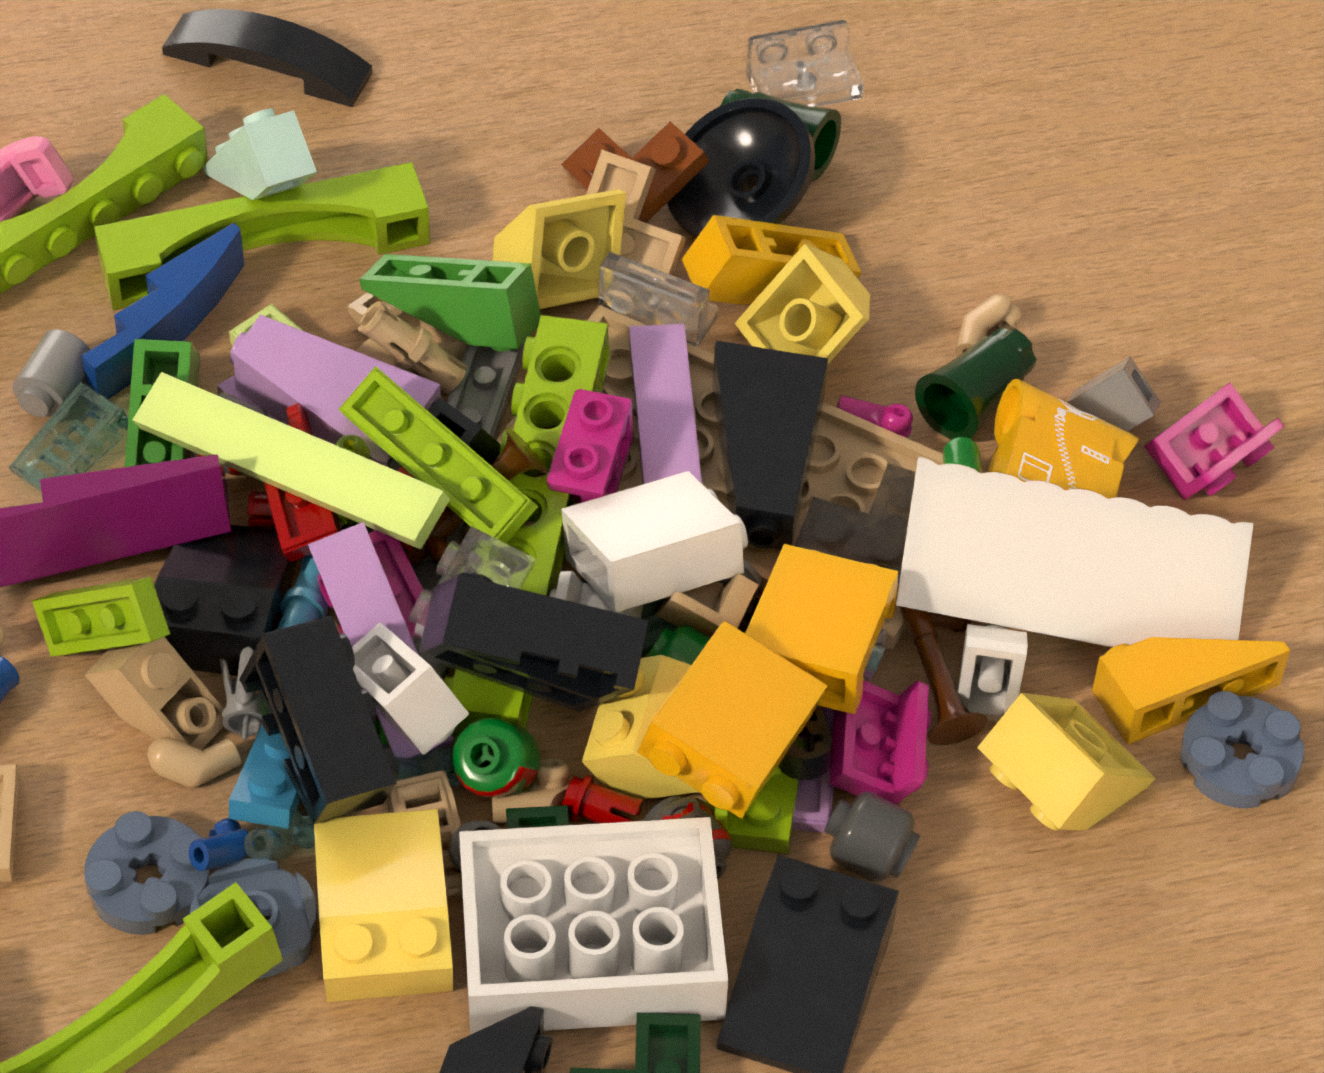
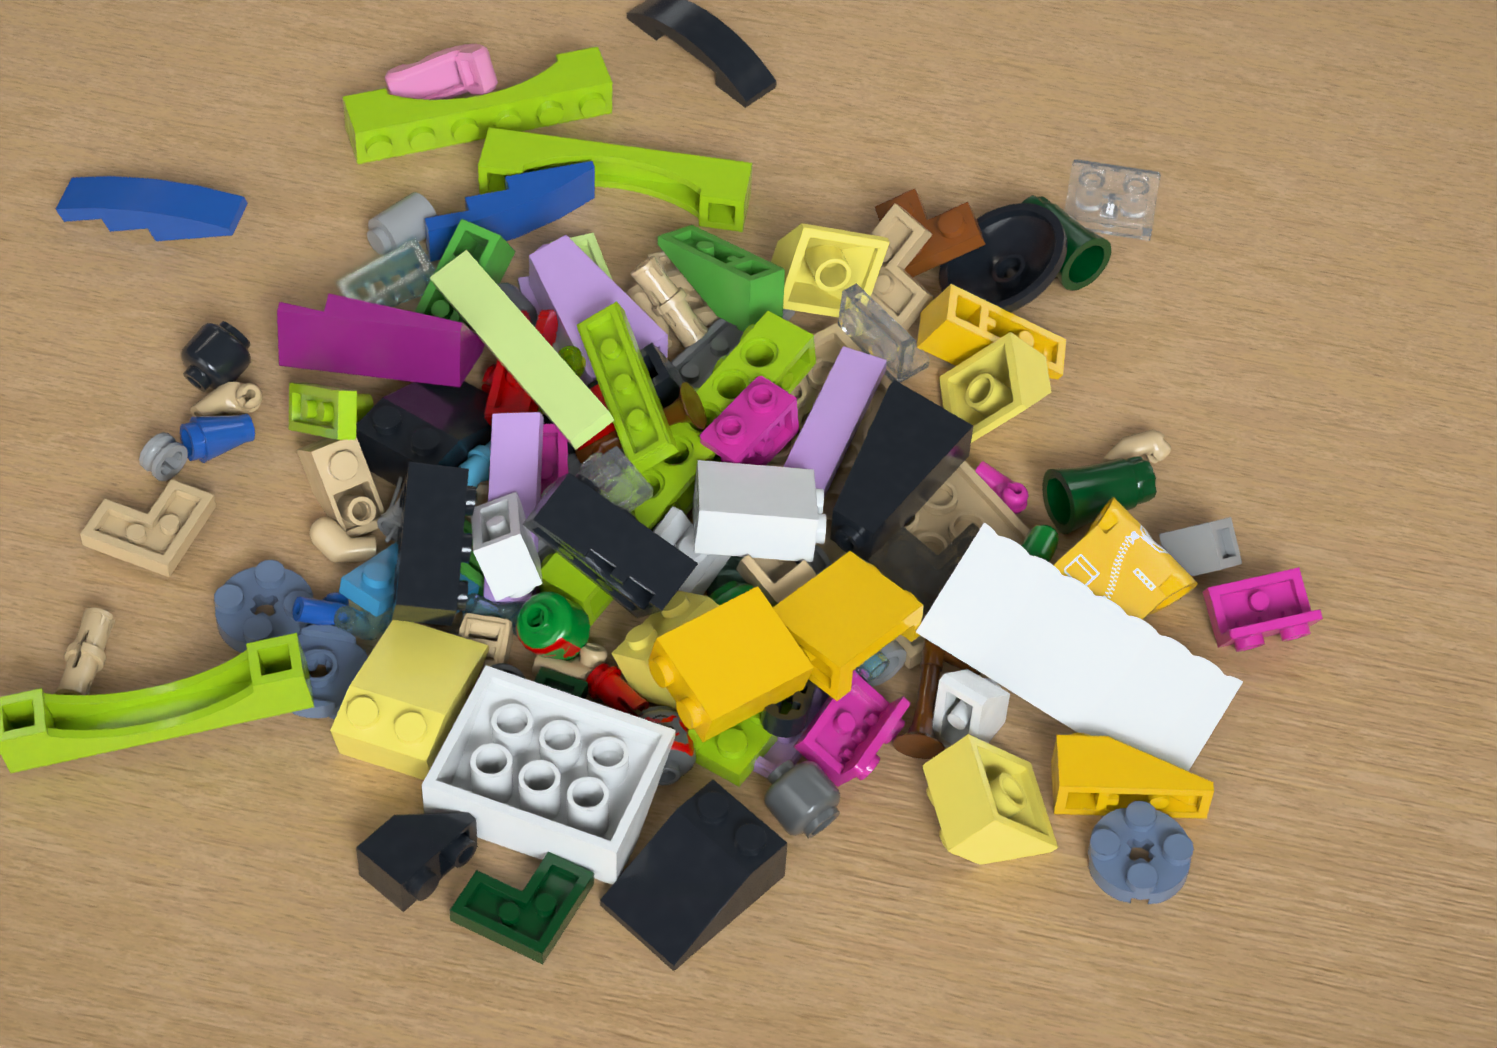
camera: 25 degrees right, 0 degrees up
(263, 156) = (636, 117): light aqua slope -> none

